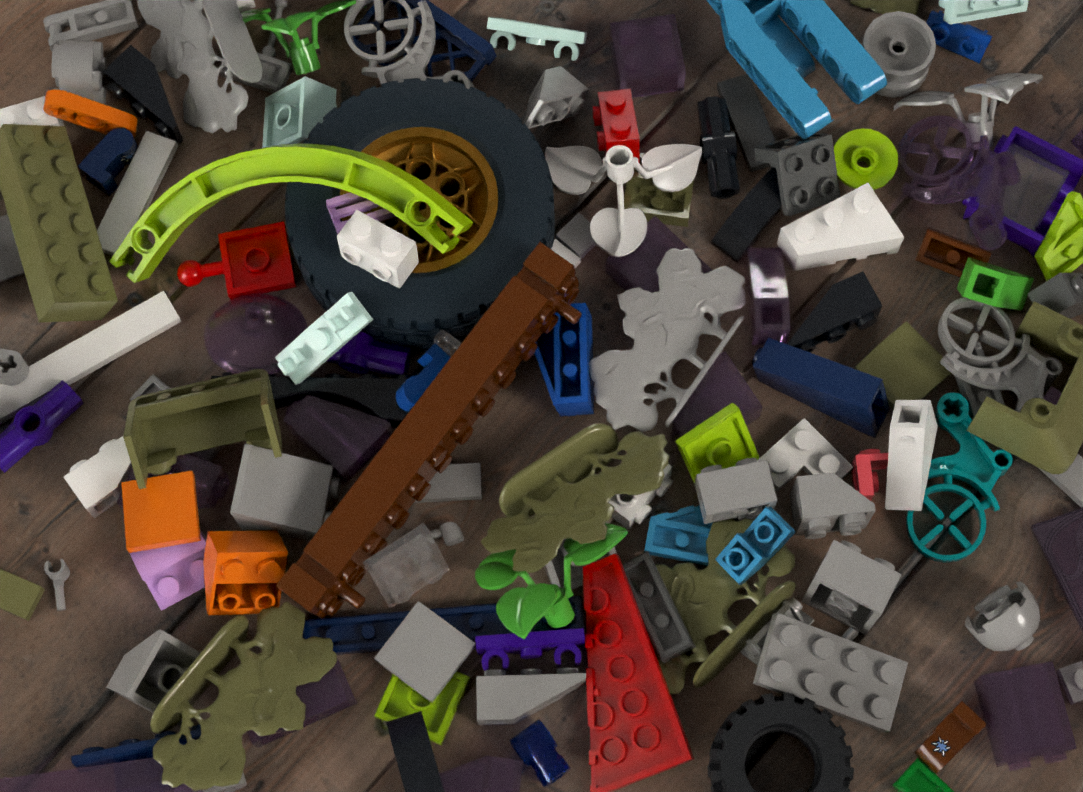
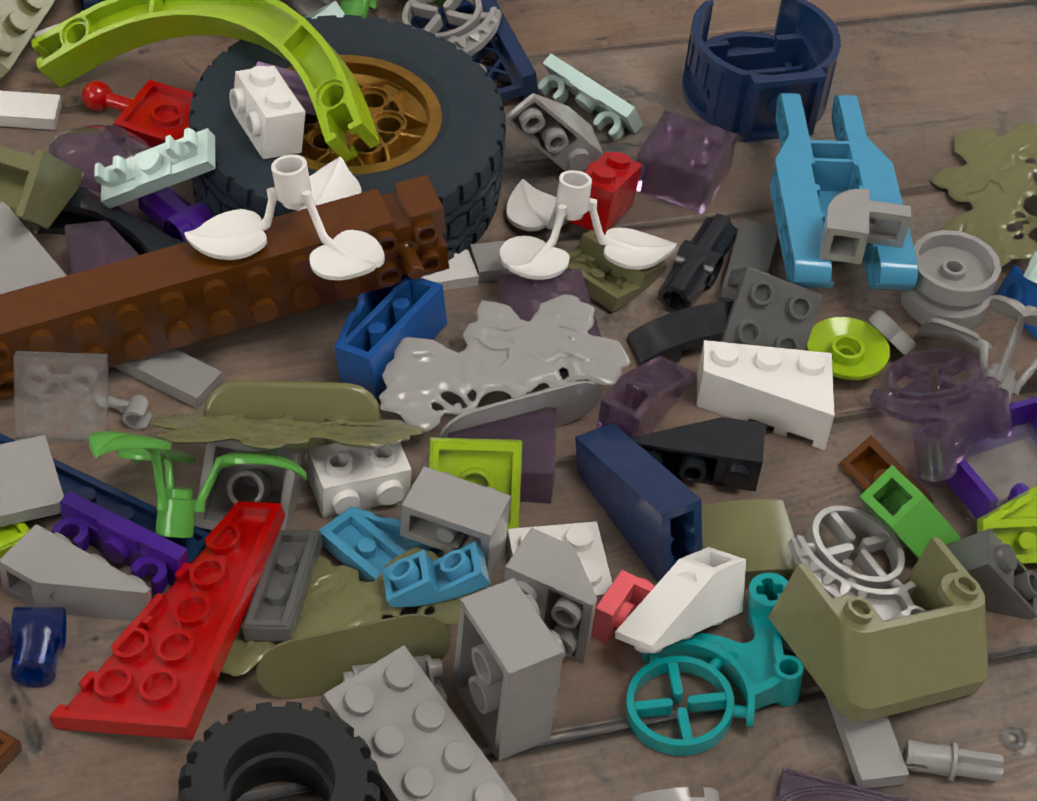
camera: 25 degrees right, 25 degrees down
(468, 294) = (241, 231): none -> white plant
(827, 70) = (856, 220): none -> light grey brick
(884, 124) = (892, 332): none -> light grey tile

